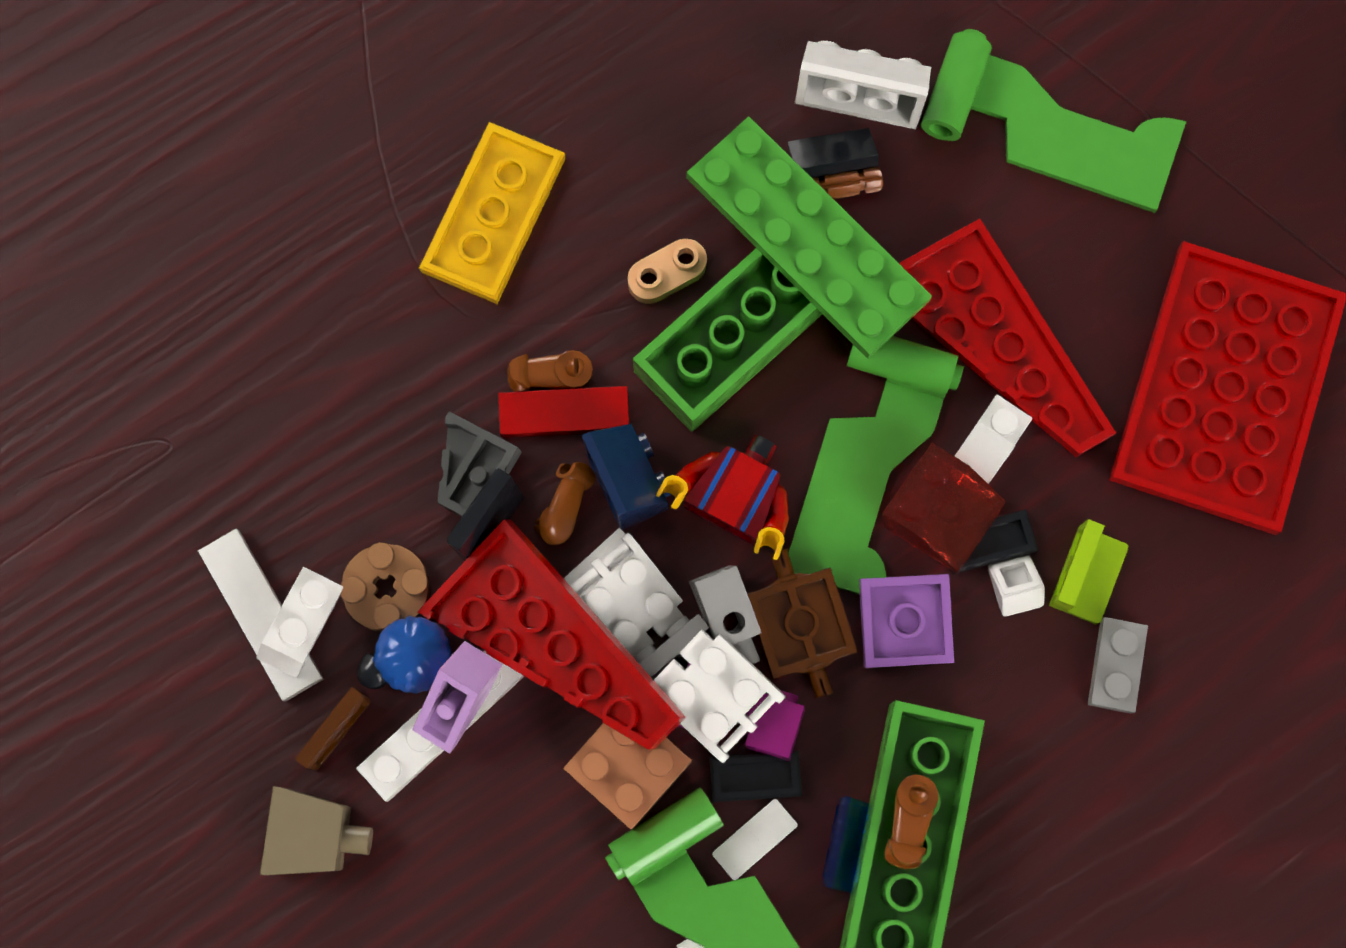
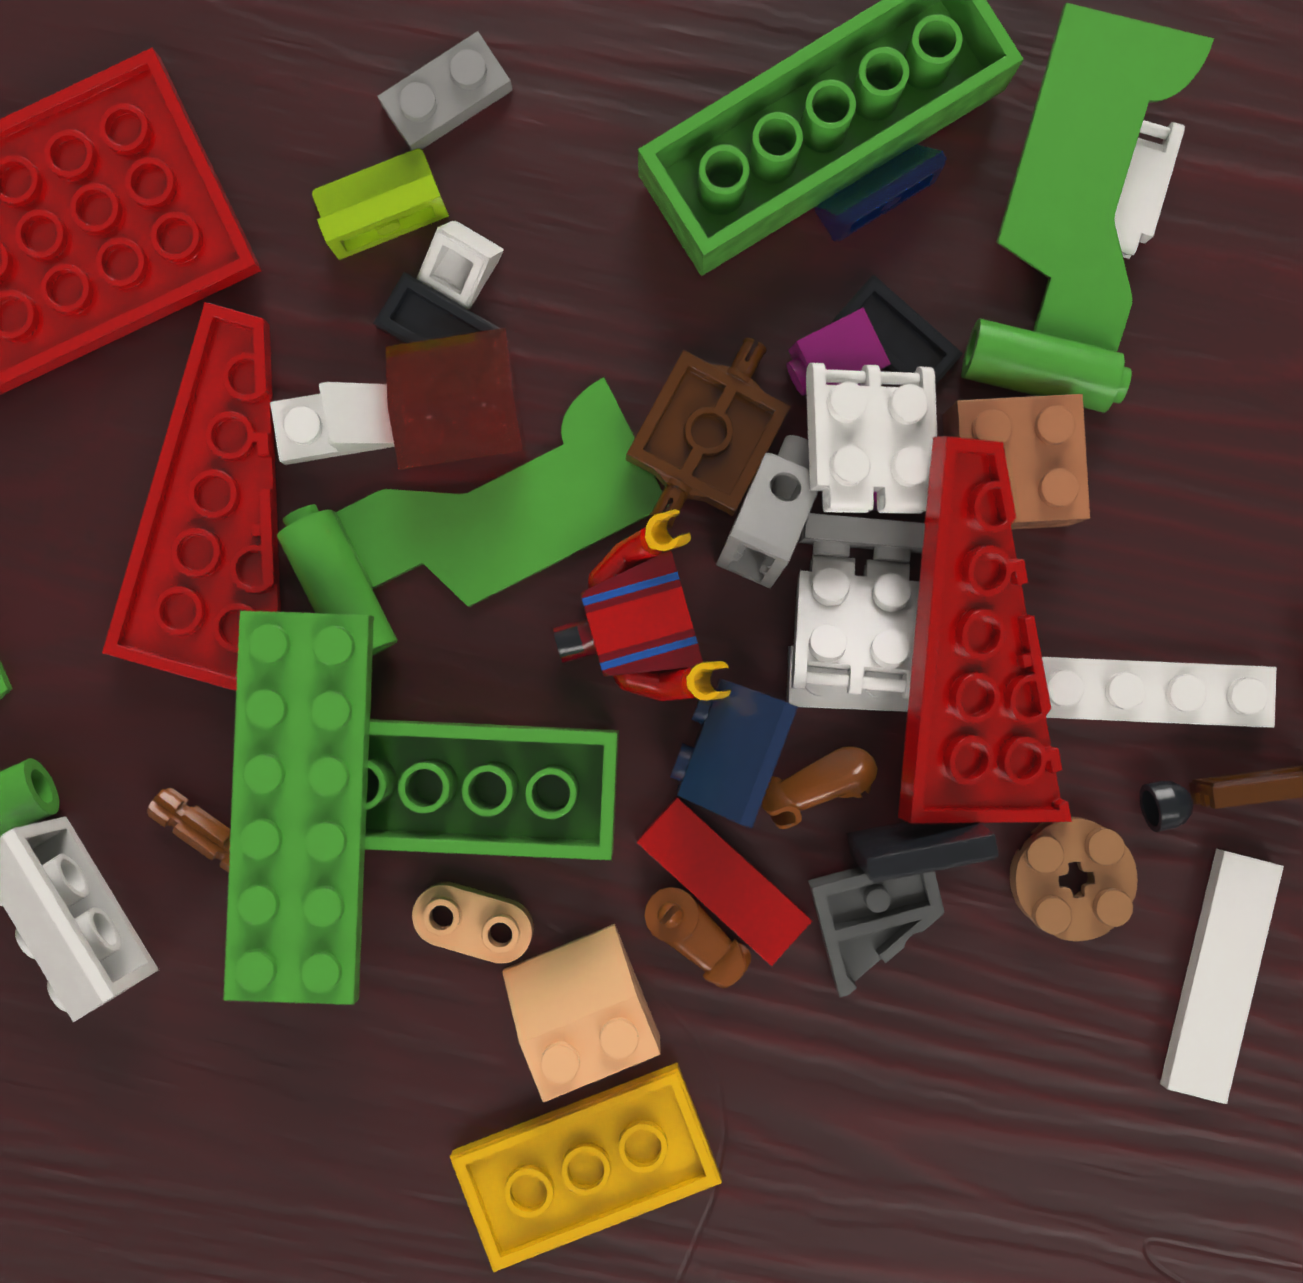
camera: 135 degrees left, 10 degrees up
(299, 622) = (1206, 926): white brick -> none
(411, 653) = (1122, 781): blue hair -> none
(456, 696) = (1121, 695): lavender slope -> none
(571, 279) = (580, 1013): none -> light nougat slope
(754, 839) = (956, 283): white sticker -> none
(835, 152) = (174, 873): black tile -> none
(906, 620) = (604, 332): medium lavender plate -> none
(912, 816) = (794, 134): dark orange piece -> none

